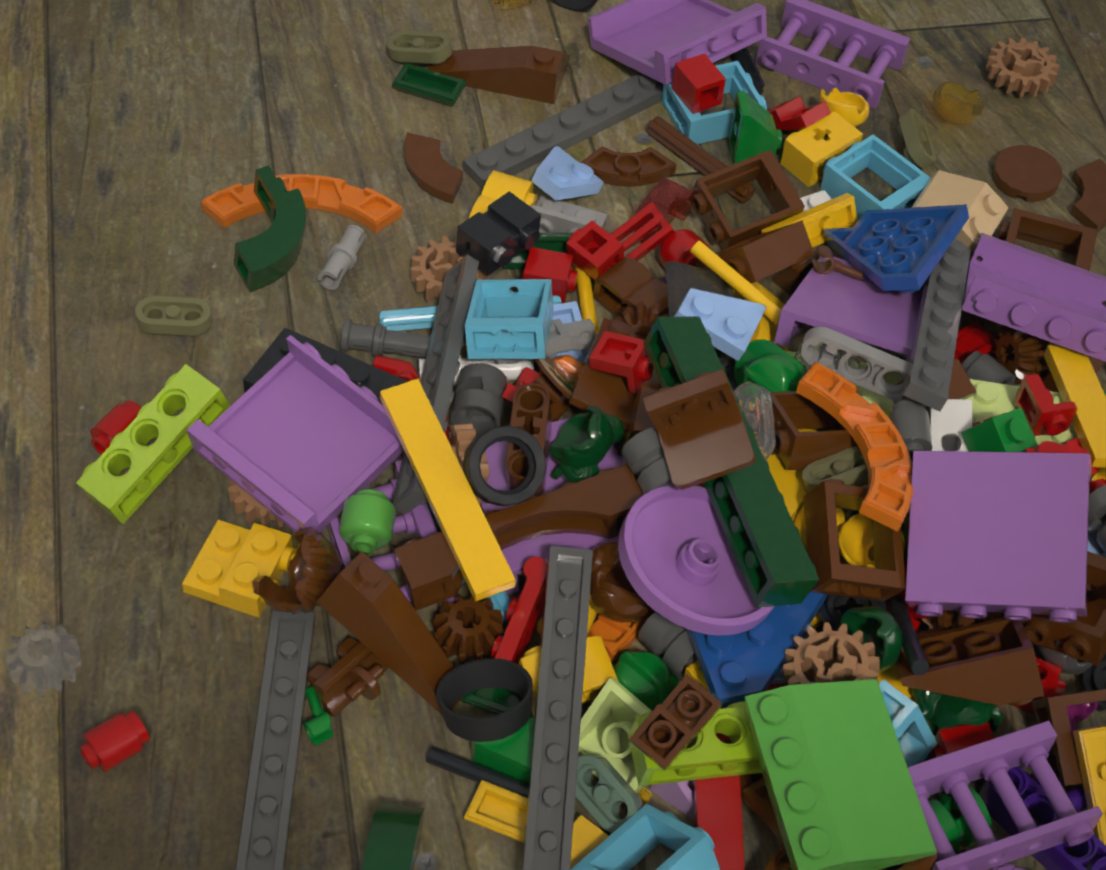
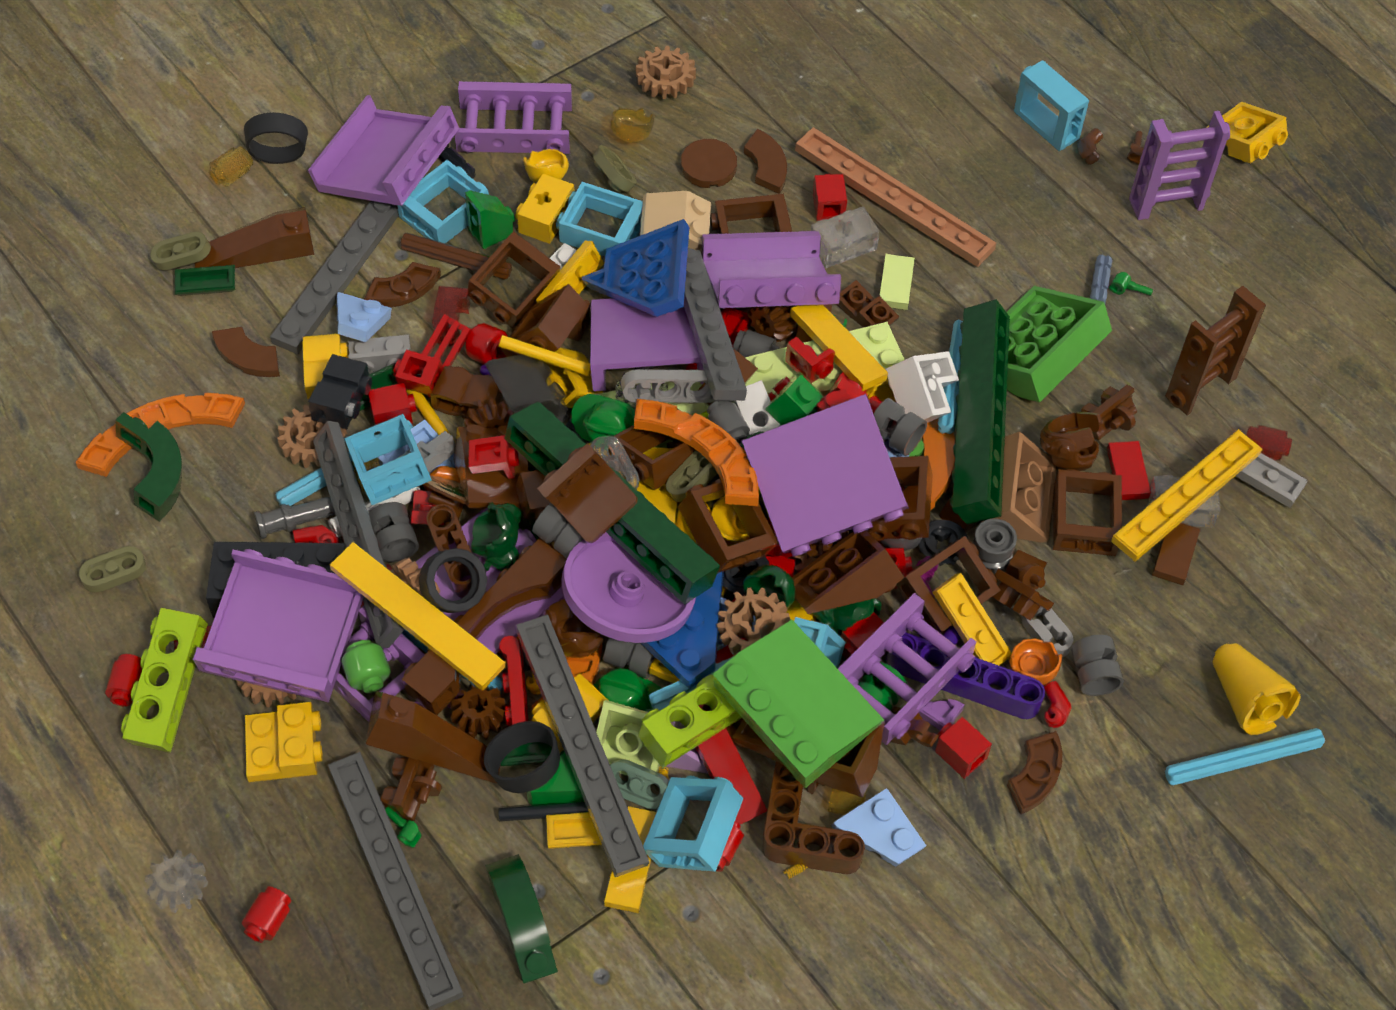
camera: 25 degrees left, 5 degrees up
(309, 575) = (345, 727): reddish brown hair -> none
(341, 257) = (219, 461): light grey pin -> none
(675, 722) = (671, 713): reddish brown slope -> none
(698, 83) = (428, 195): red brick -> none
(725, 319) = (553, 389): light blue wing -> none
(794, 115) = (512, 189): red slope -> none
(833, 265) = (603, 309): reddish brown hand -> none
(911, 643) = (799, 579): black bar -> none

